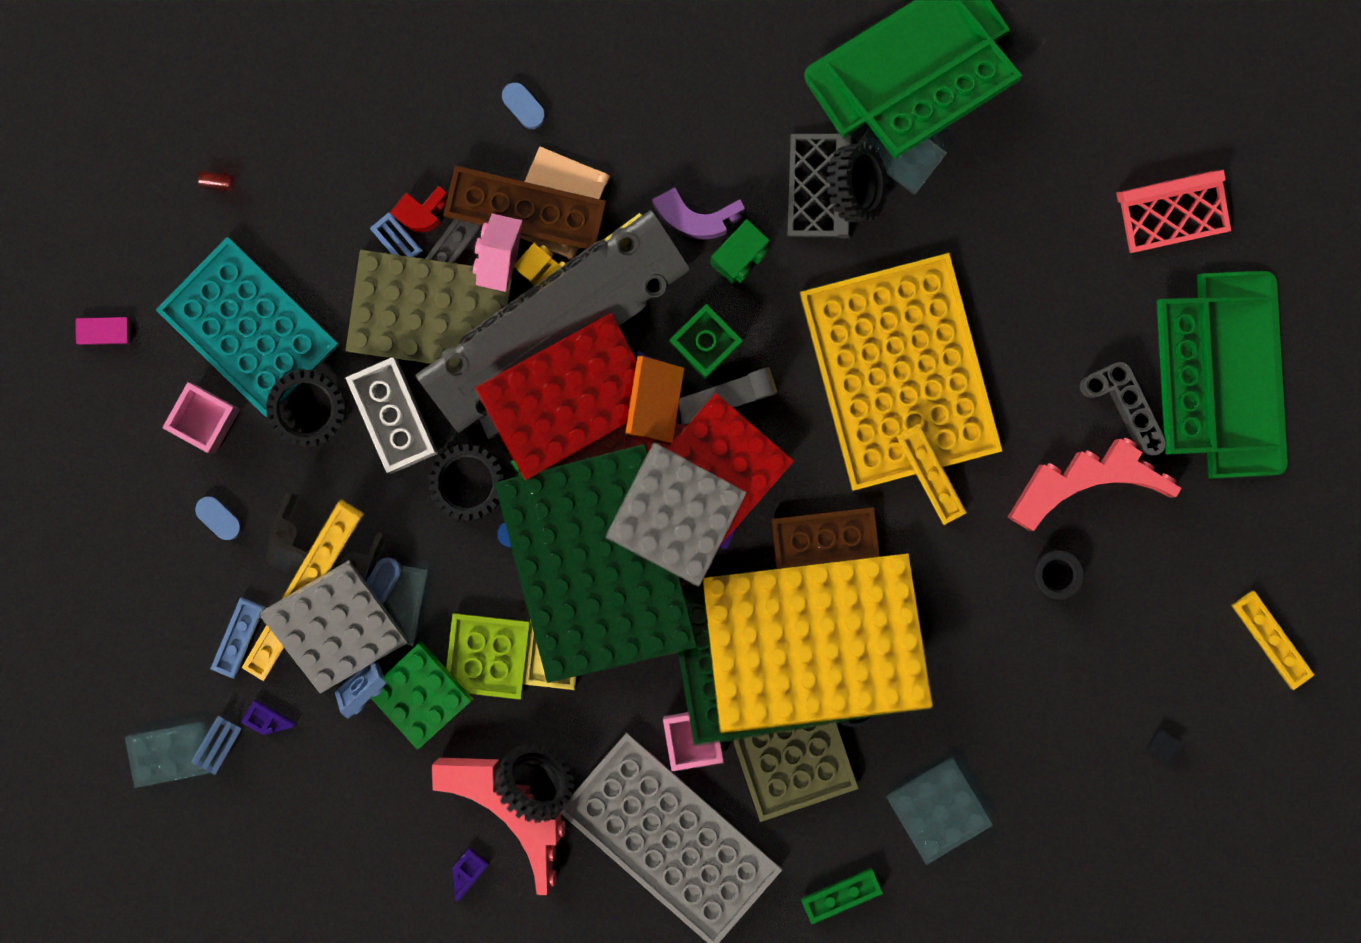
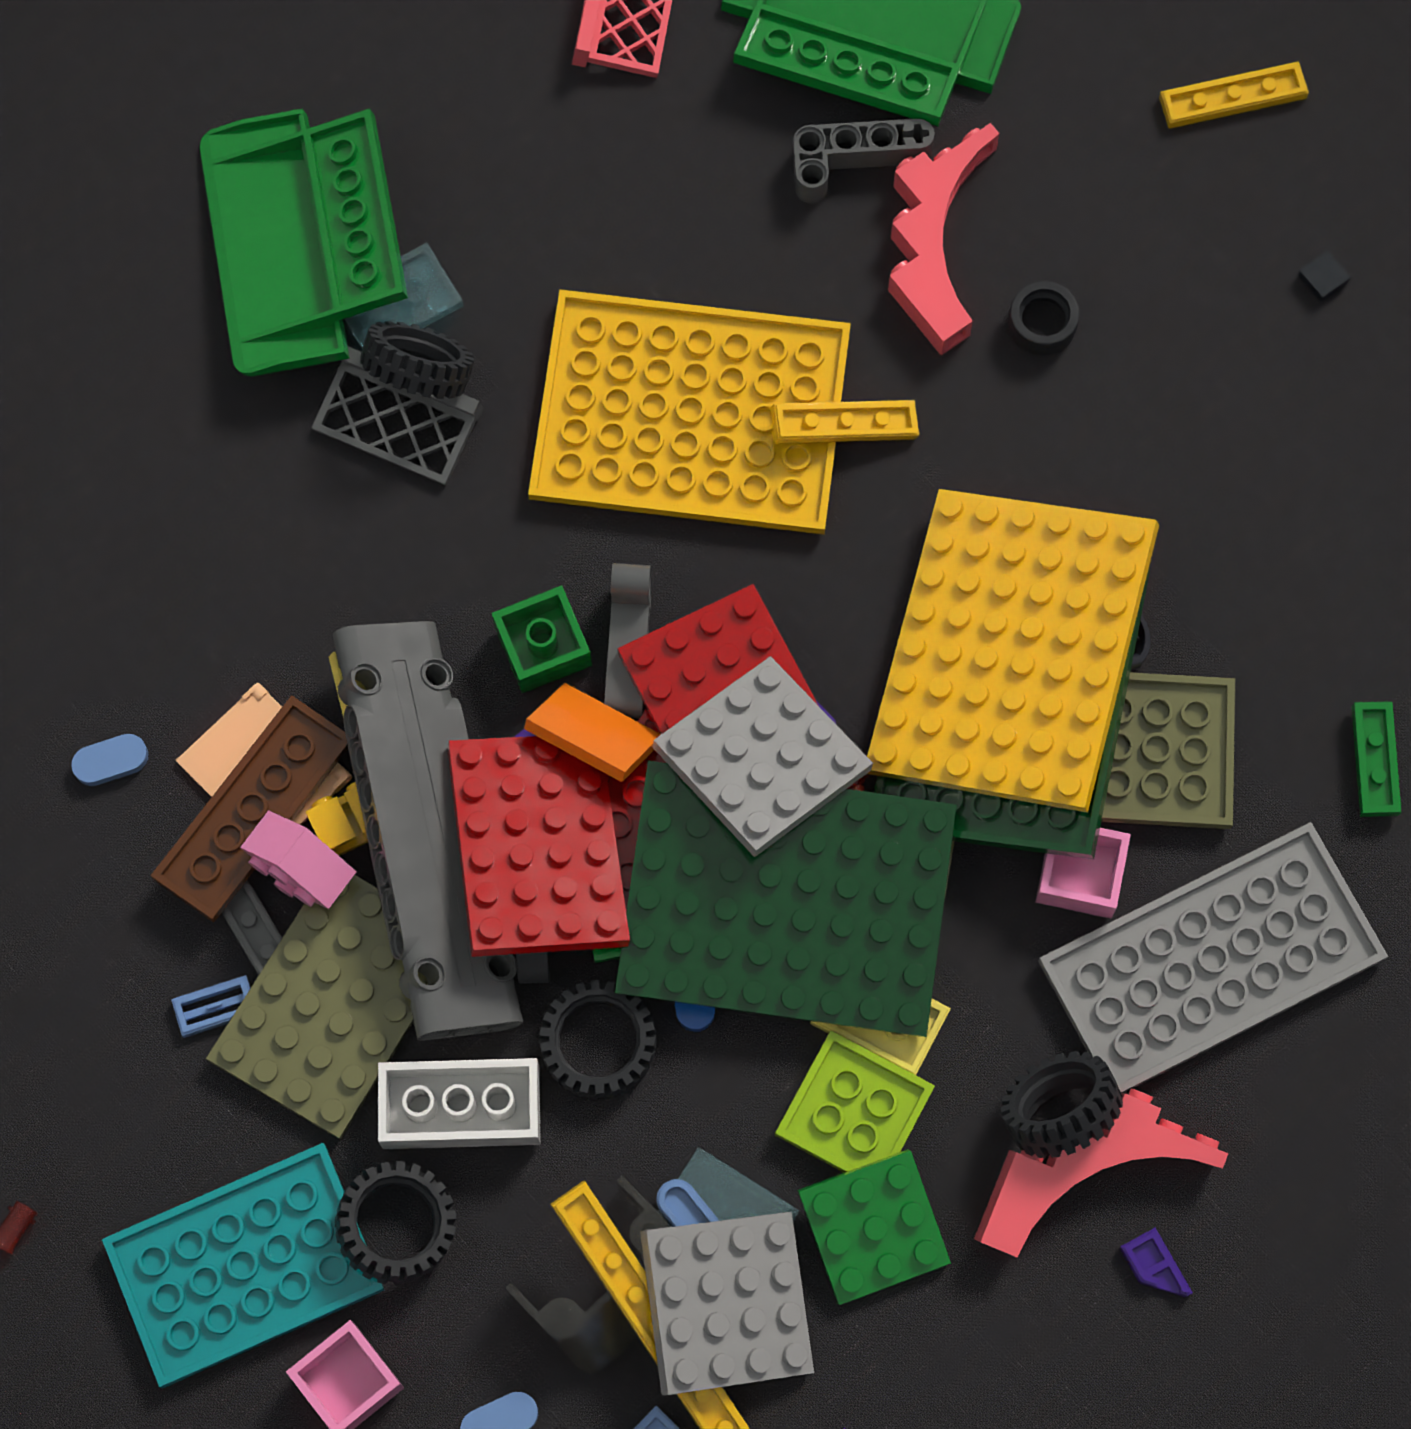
camera: 65 degrees left, 15 degrees down
(359, 689) = (830, 1303): medium blue plate -> none
(418, 216) = (195, 961): red brick -> none
(691, 224) = (375, 596): medium lavender arch -> none
(740, 252) = (442, 546): green brick -> none
(825, 538) = (873, 592): reddish brown plate -> none
(939, 811) = (1305, 589): clear light blue plate -> none

